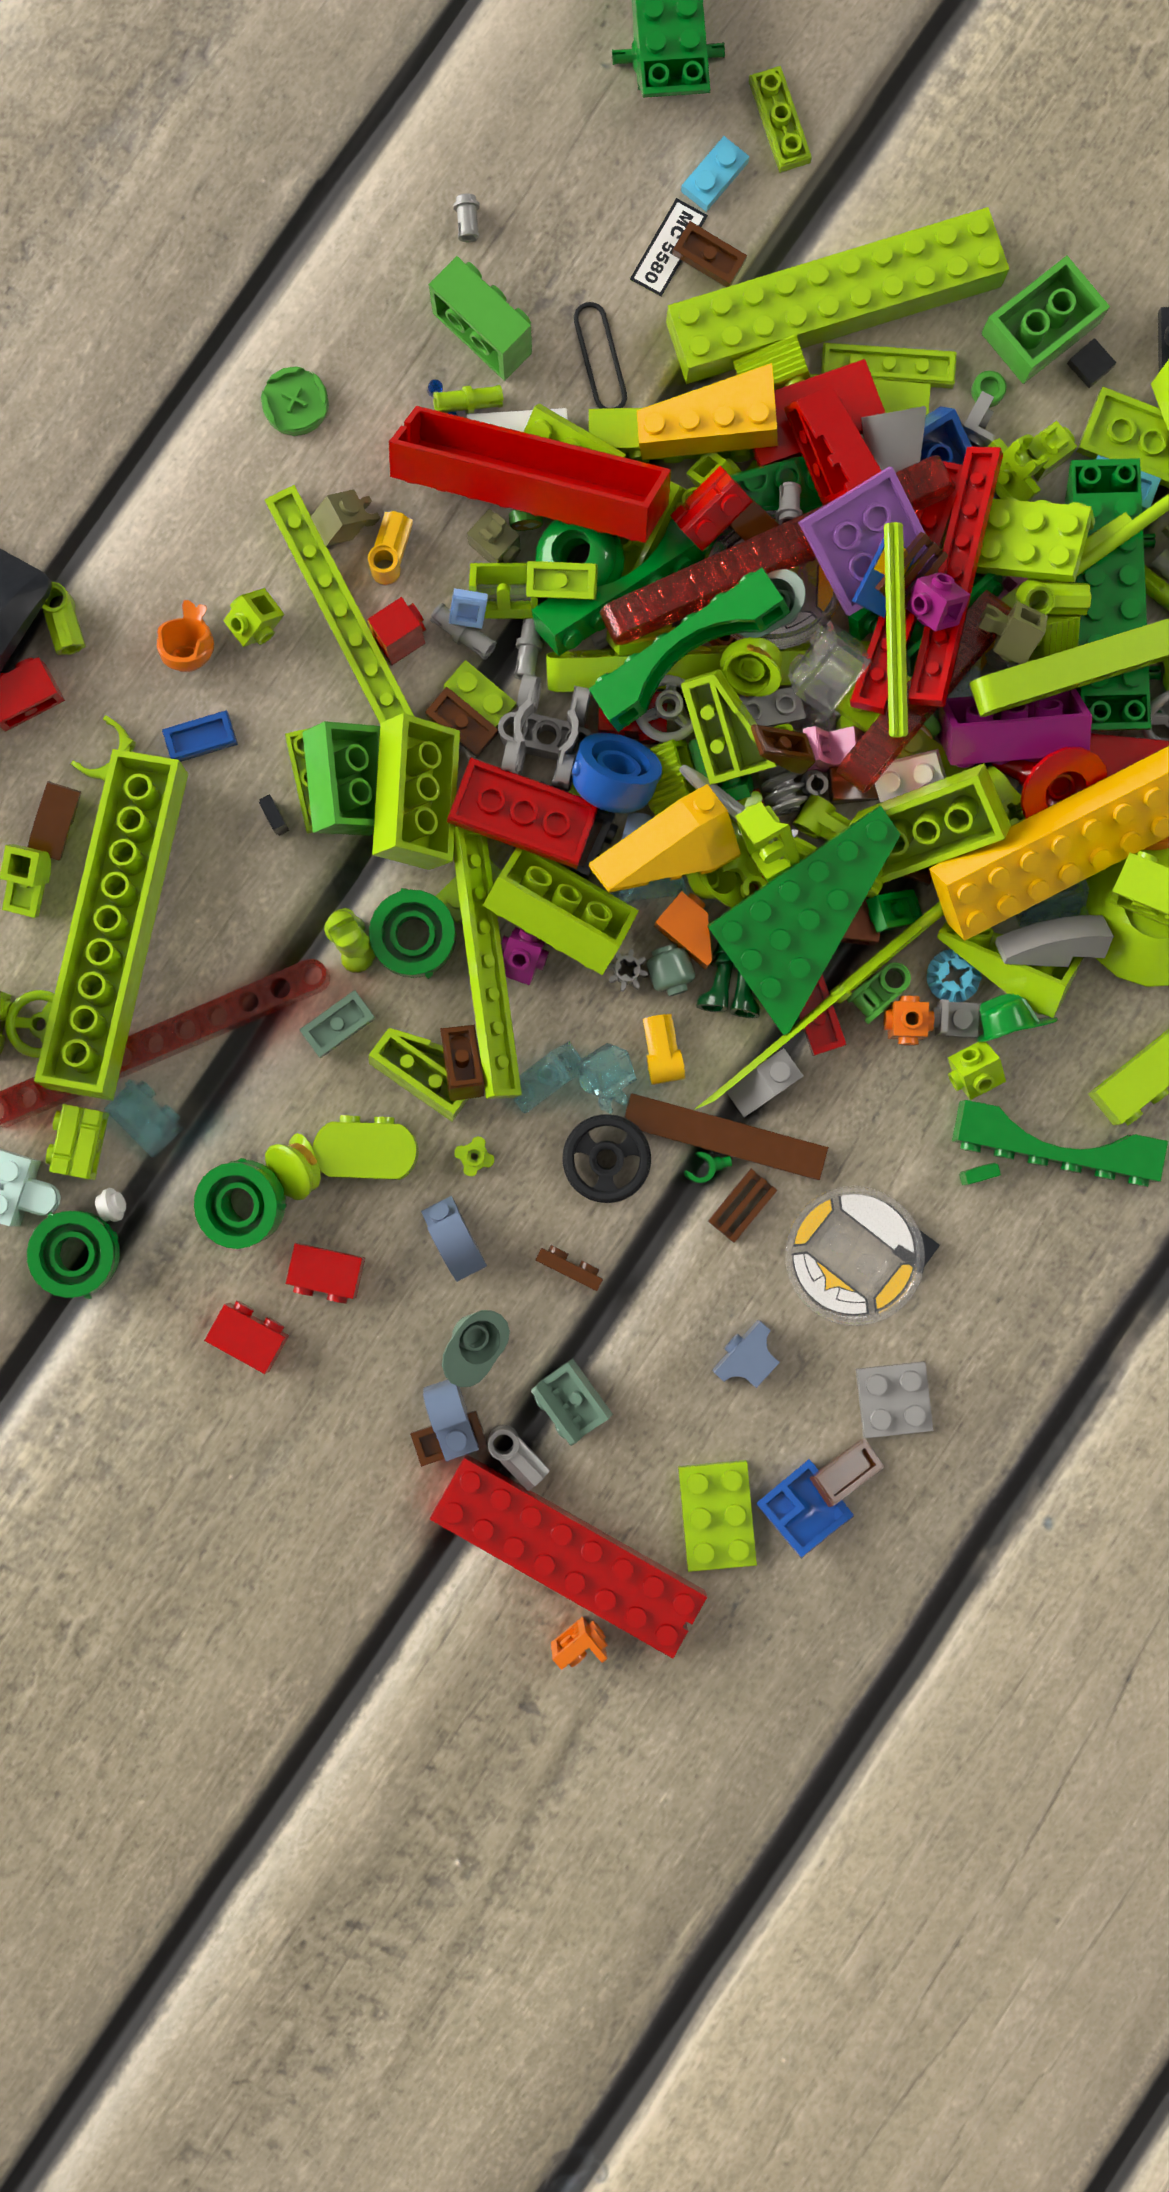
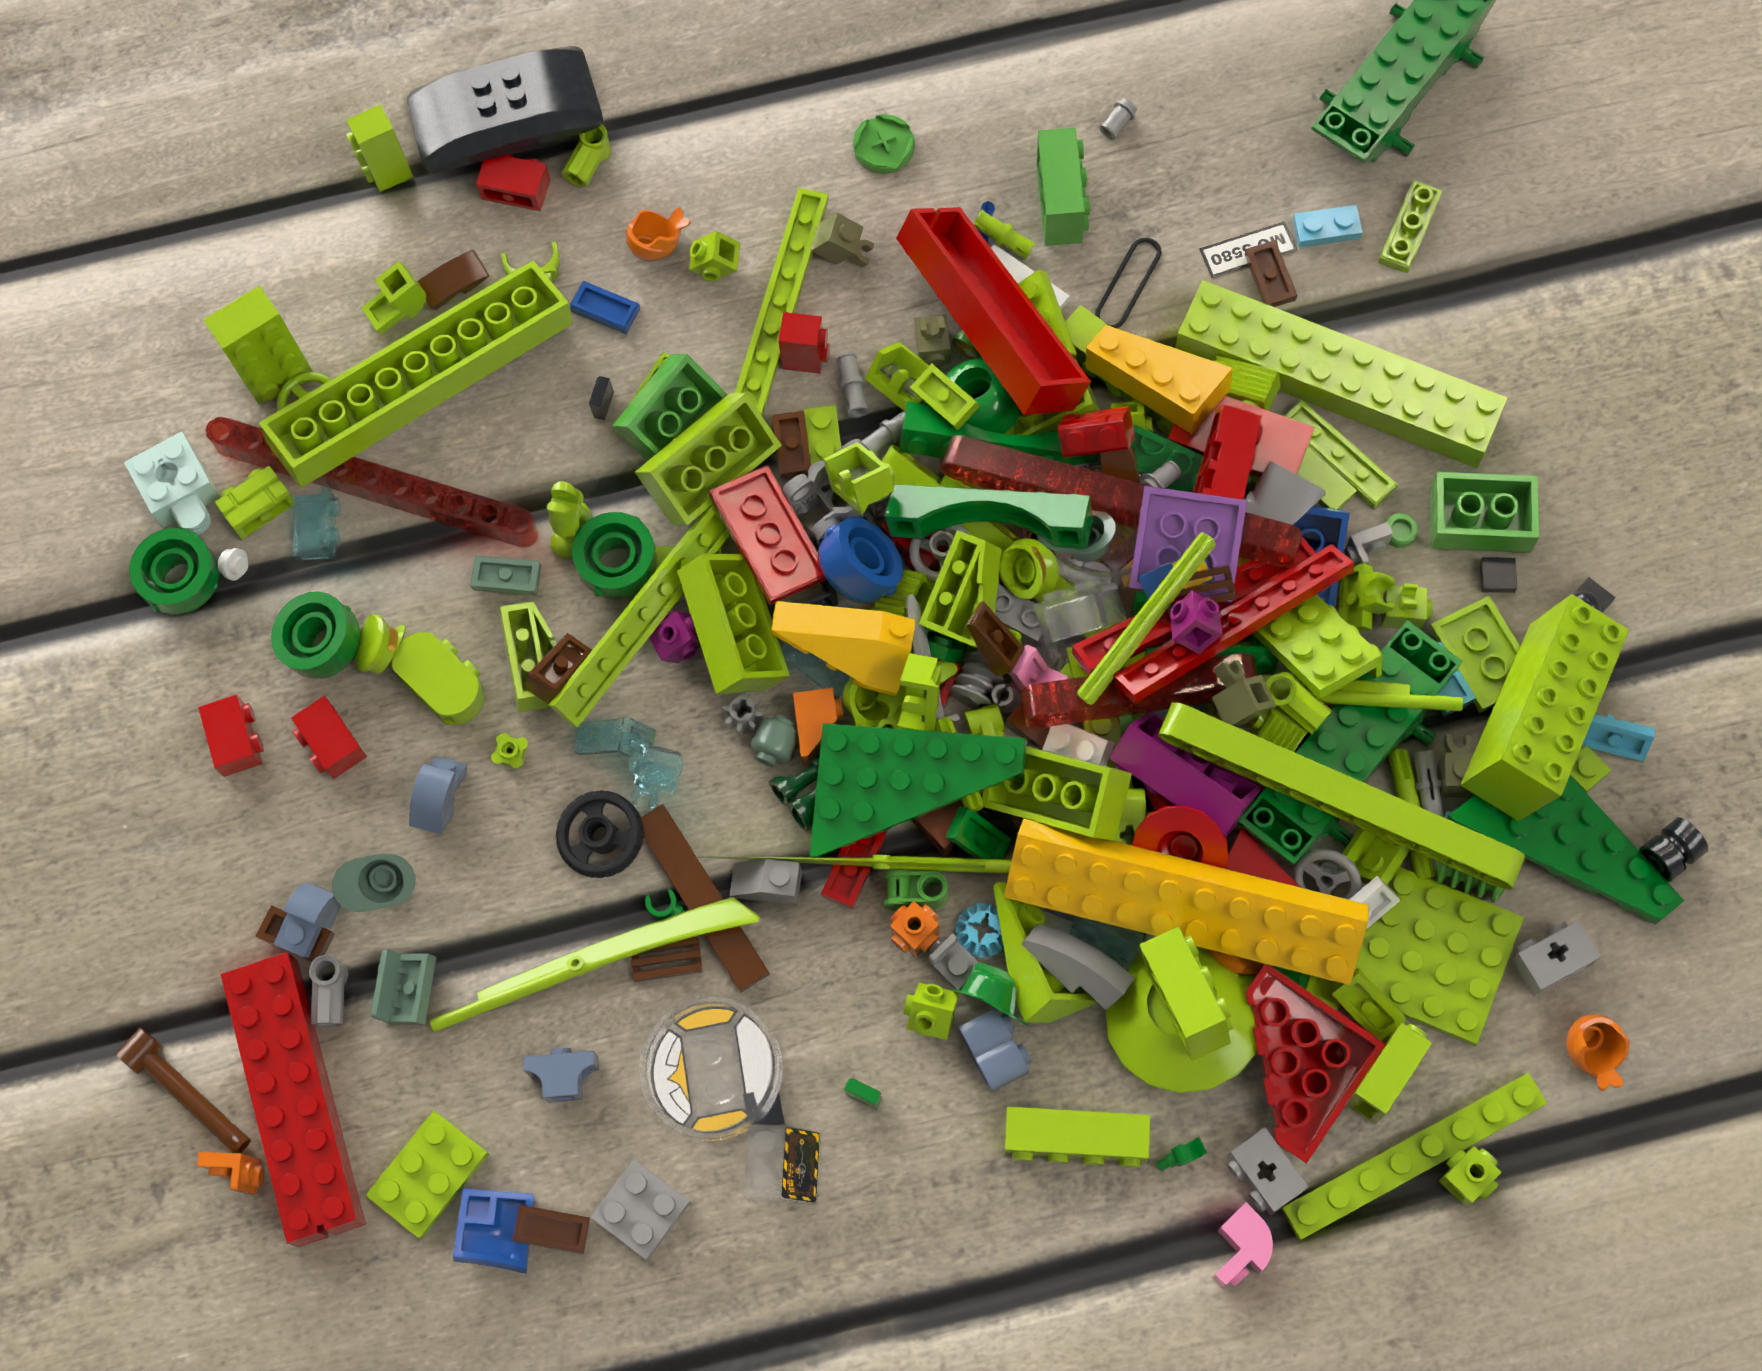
camera: 55 degrees right, 15 degrees down
(390, 546) = (855, 286): yellow piece -> none
(420, 1625) = (142, 1052): none -> reddish brown piece
(468, 608) = (865, 367): light blue tile -> none
(556, 1260) = (494, 875): reddish brown plate -> none
(561, 705) = (859, 476): none -> lime window
(663, 1056) = (710, 799): yellow piece -> none
(735, 1169) = (695, 922): none -> piece
(968, 1277) = (782, 1165): none -> slope
(988, 1127) = (990, 1184): green arch -> none
(1044, 1057) = (994, 1049): none -> sand blue brick

